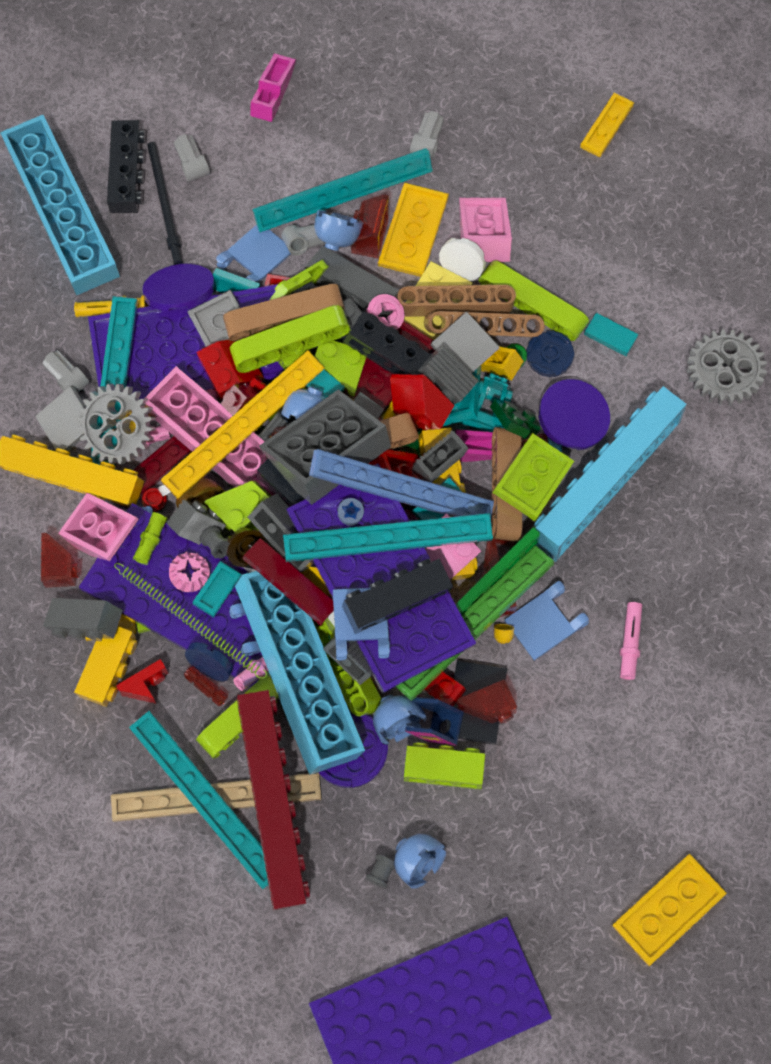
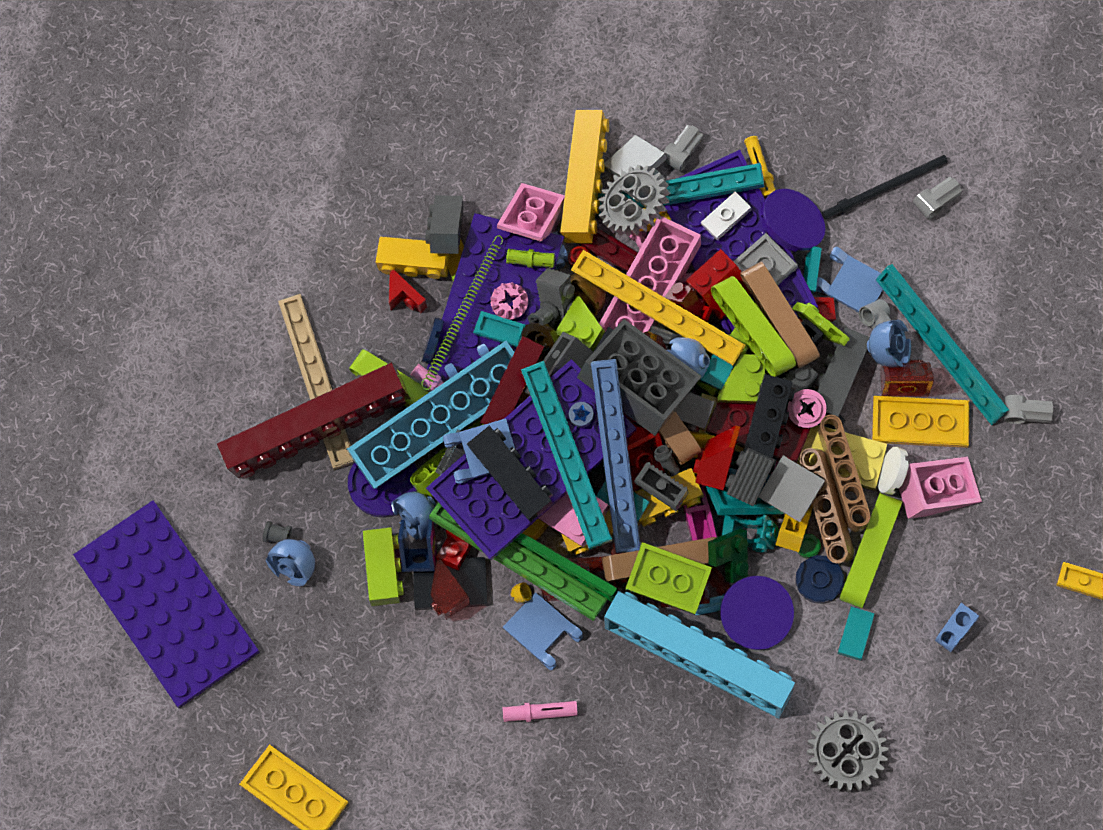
camera: 80 degrees right, 0 degrees up
(57, 564) = (498, 191): clear red slope -> none
(60, 205) = (851, 93): medium azure brick -> none
(125, 165) = (911, 140): black brick -> none
(156, 345) = (726, 216): none -> white plate
(202, 796) = (320, 355): teal tile -> none
(205, 686) = (414, 346): clear red axle -> none
(272, 87) = (1040, 251): dark pink slope -> none
(407, 450) = (664, 455): none -> dark grey pin
(626, 244) = (957, 627): none -> medium blue leg

